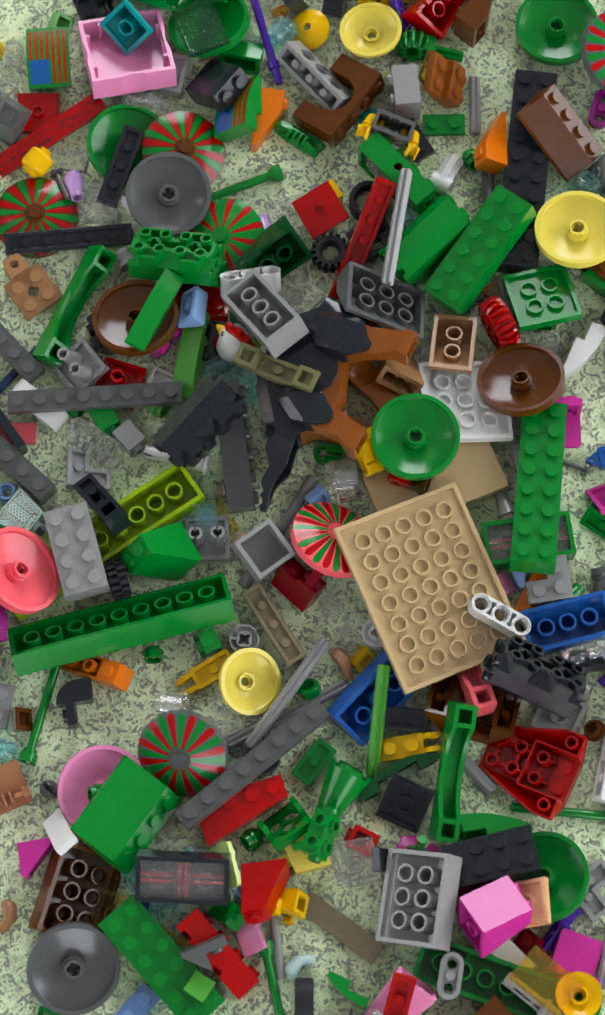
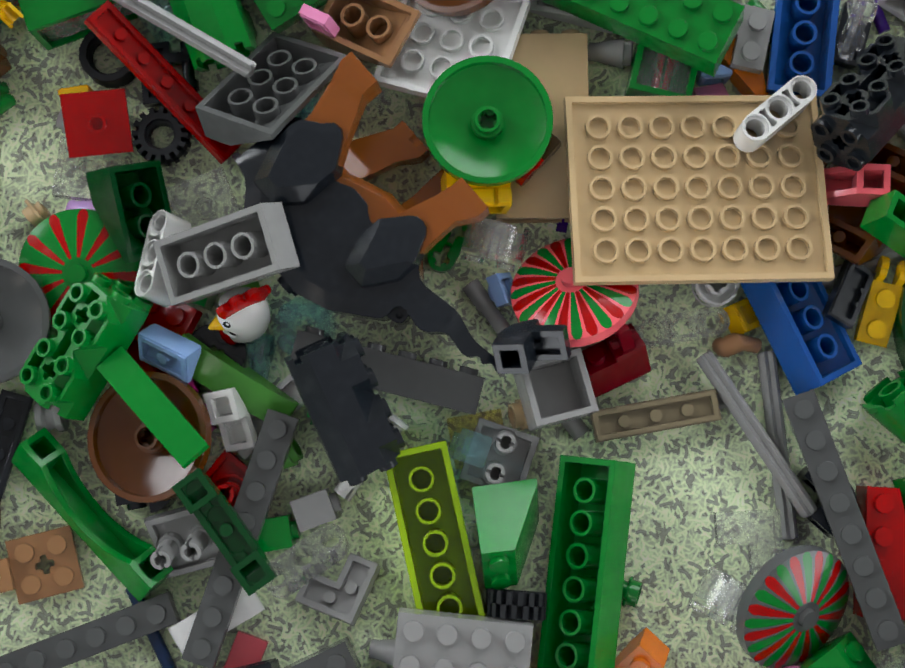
camera: 70 degrees left, 10 degrees up
(97, 383) = (226, 530): none -> dark green slope
(102, 504) = (406, 588): black slope -> none
(171, 358) = (231, 415): none -> white slope
(204, 673) = (683, 527): yellow hinge -> none
(207, 642) = (647, 513): green brick -> none
(219, 489) = (436, 415): dark tan bush -> none
(244, 637) = (659, 462): light grey wheel -> none
(249, 197) = (35, 212): none -> tan plate
(261, 679) = (732, 469): light yellow dish -> none
(272, 174) = (15, 168): green piece -> none
(275, 369) = (316, 269): olive slope -> none
(283, 515) = (526, 342): none -> black brick
(309, 689) = (759, 401): green tile -> none
(313, 762) = (855, 435): green plate -> none
(377, 719) = (839, 329): bright green axle -> none
(400, 377) = (389, 111): medium nougat slope -> none
(439, 313) = (319, 21): none -> bright pink tile

